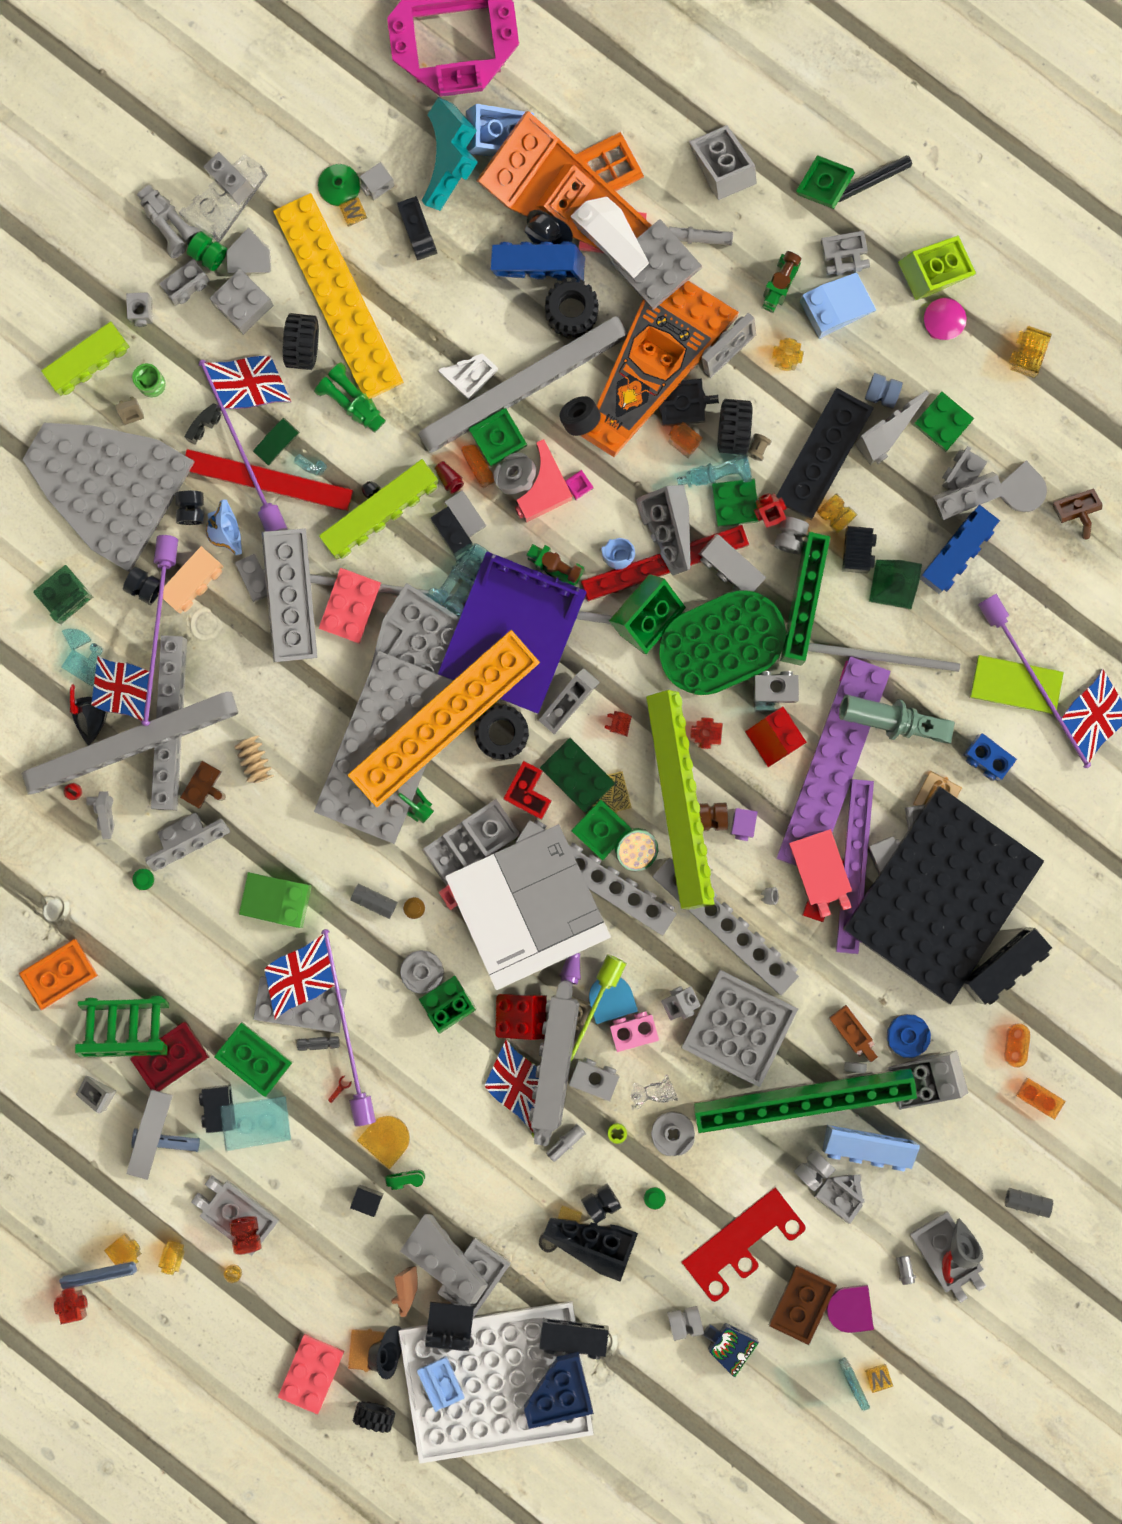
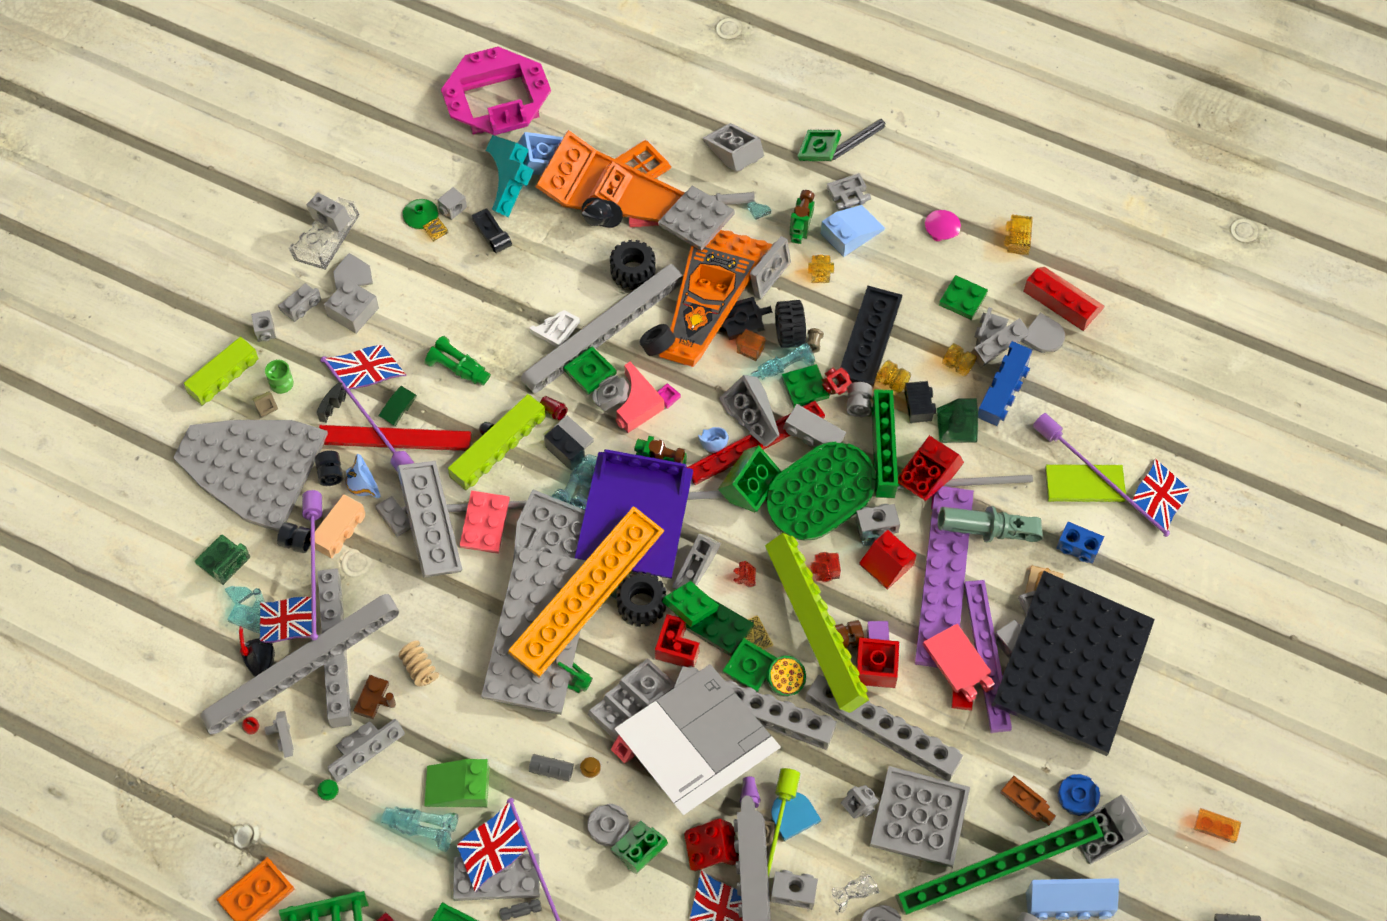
camera: 15 degrees left, 25 degrees down
(159, 211) = (272, 254): light grey piece -> none
(205, 249) = (314, 273): green wheel -> none
(218, 930) = (408, 821): none -> clear light blue piece
(300, 341) = (407, 322): black tyre -> none
(306, 465) = (430, 420): clear light blue arm -> none
(338, 296) = (434, 292): yellow plate -> none
(478, 465) = (576, 395): clear orange slope -> none
(538, 260) = (596, 235): blue wedge -> none
(551, 752) = (690, 603): none -> green plate
(609, 230) = (653, 201): white wedge -> none
(635, 1037) = (825, 843): bright pink brick -> none
(734, 256) = (758, 210): none -> clear light blue tile
(735, 855) = (878, 662): none -> red slope
(770, 896) = (918, 694): light grey hinge -> none
(847, 639) = (930, 468): none -> red slope
(855, 1067) = (1037, 830): light grey tile -> none
(882, 436) = (916, 309): light grey wedge -> none
(883, 390) = (907, 281): sand blue wheel -> none
(922, 511) = (965, 362): none -> clear yellow wheel
(936, 267) = (924, 189): lime slope -> none
(1007, 965) = (1149, 710): black brick -> none
(1018, 1045) = (1181, 783): clear orange plate -> none
(1059, 444) = (1062, 297): none -> red slope
(1079, 507) = (1095, 337): reddish brown plate -> none

